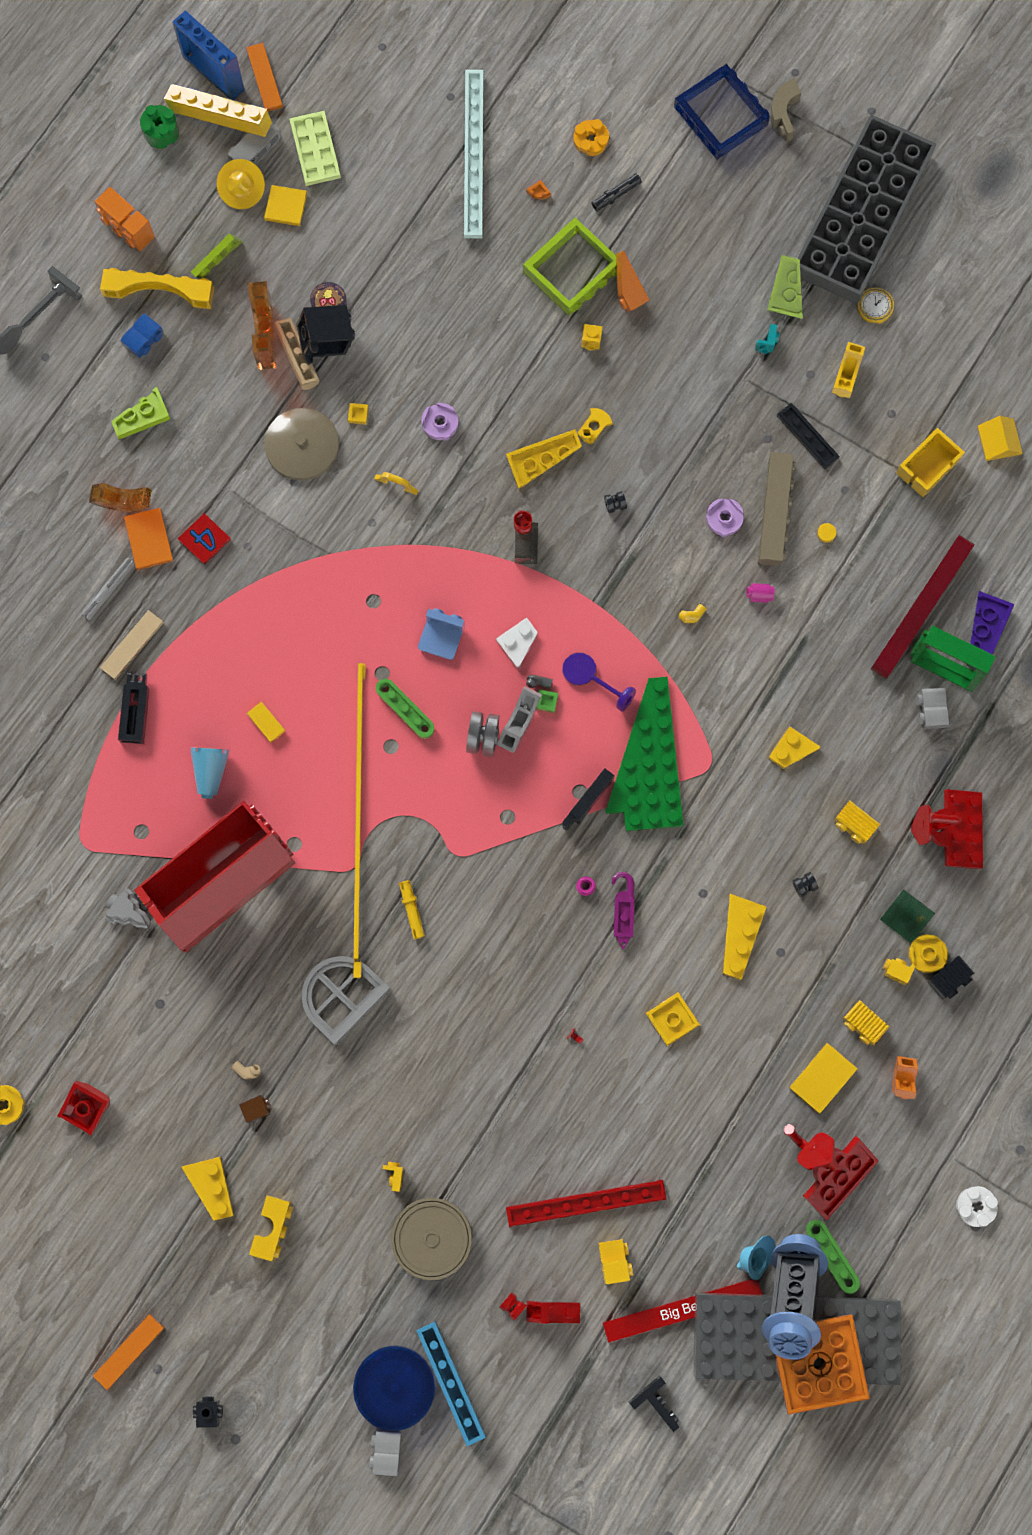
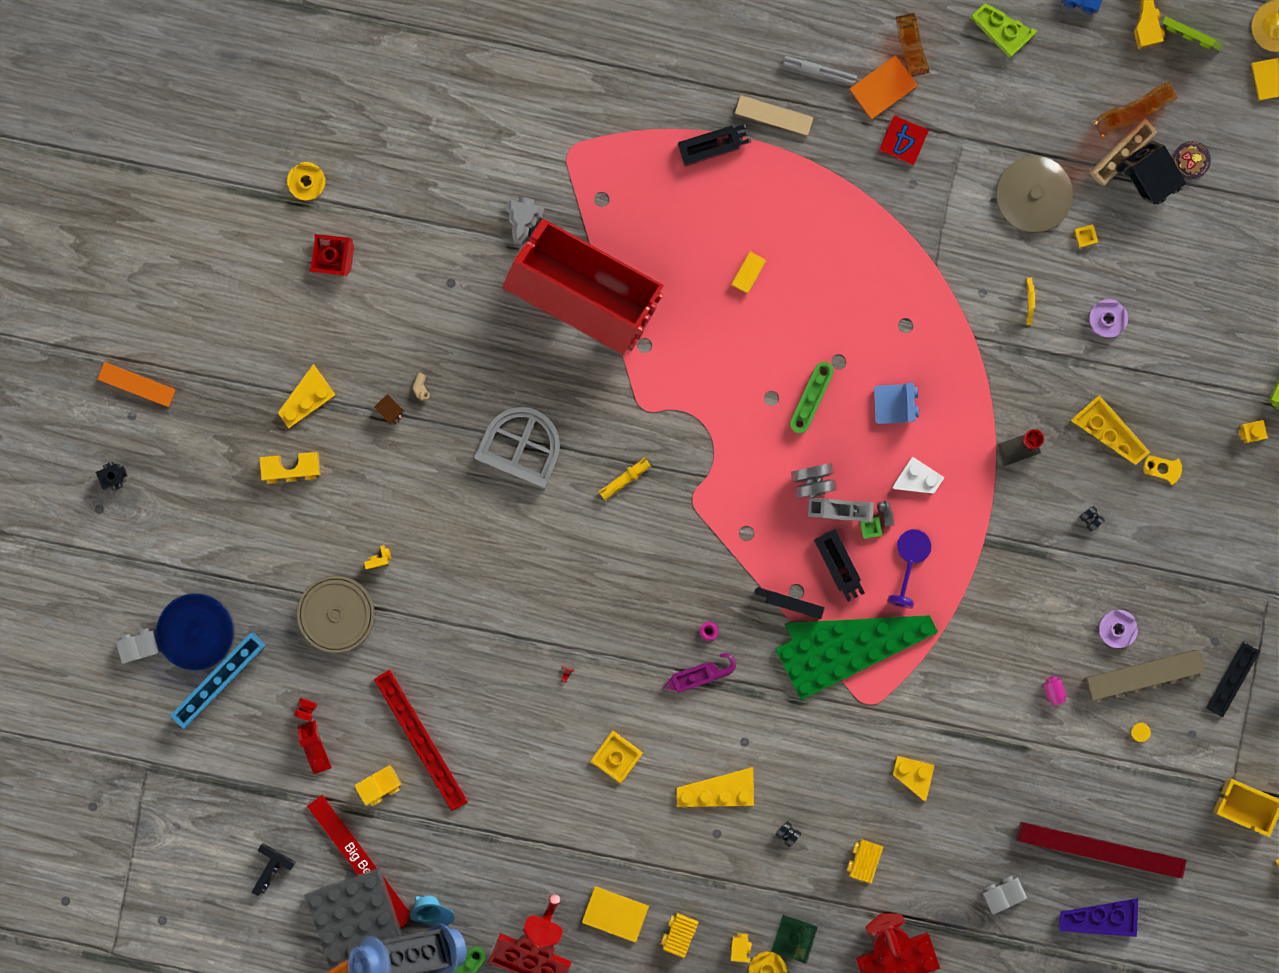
camera: 60 degrees right, 10 degrees up
(208, 769) = (682, 238): medium azure cone -> none
(357, 965) = (554, 449): yellow piece -> none
(562, 742) = (836, 558): none -> black hinge
(692, 616) = (1006, 633): yellow arm -> none
(957, 649) = (1054, 895): green window -> none

